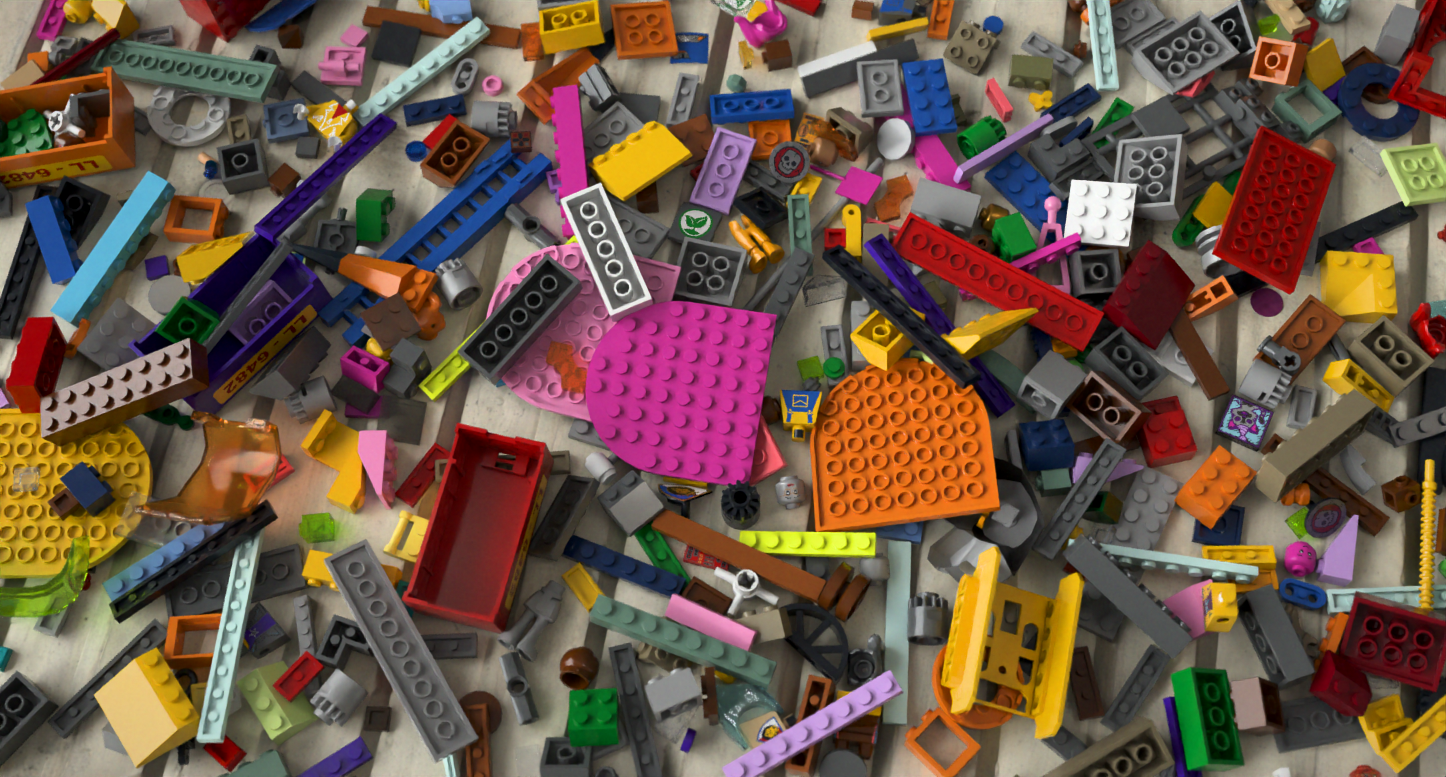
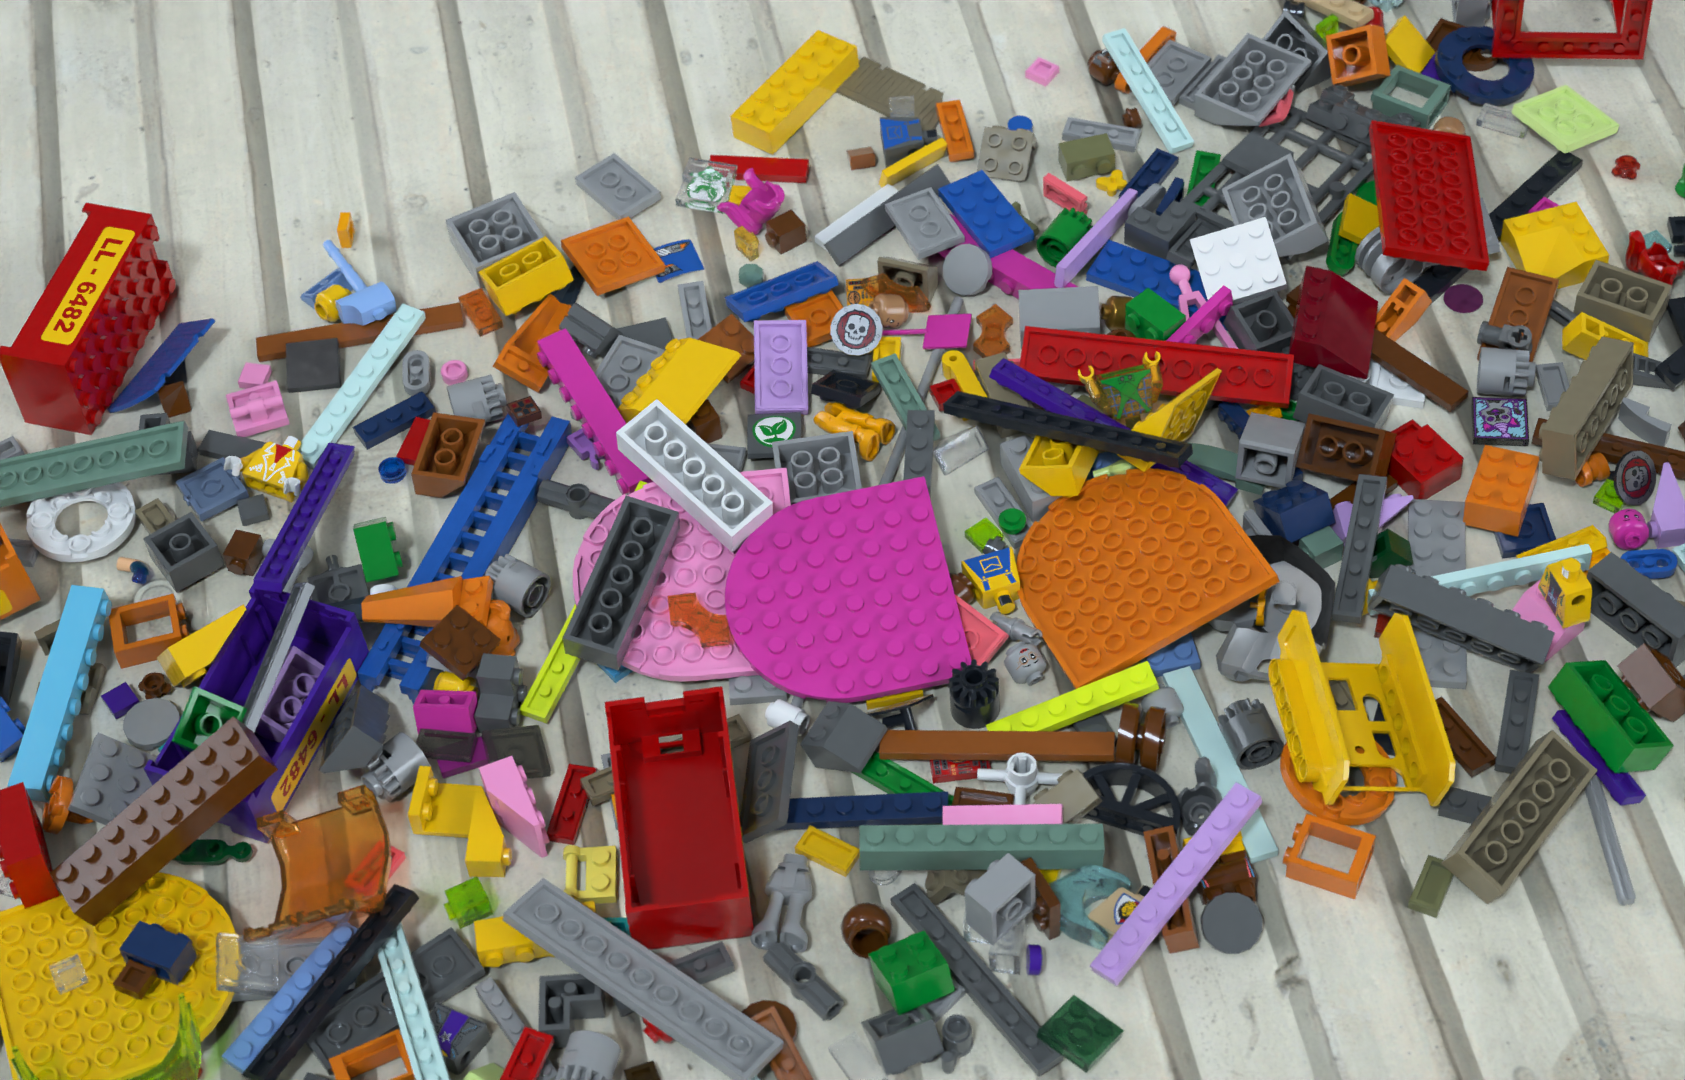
camera: 20 degrees left, 15 degrees down
(796, 460) = (1016, 628): none -> light grey pin
(962, 296) = (1126, 391): none -> clear yellow torso

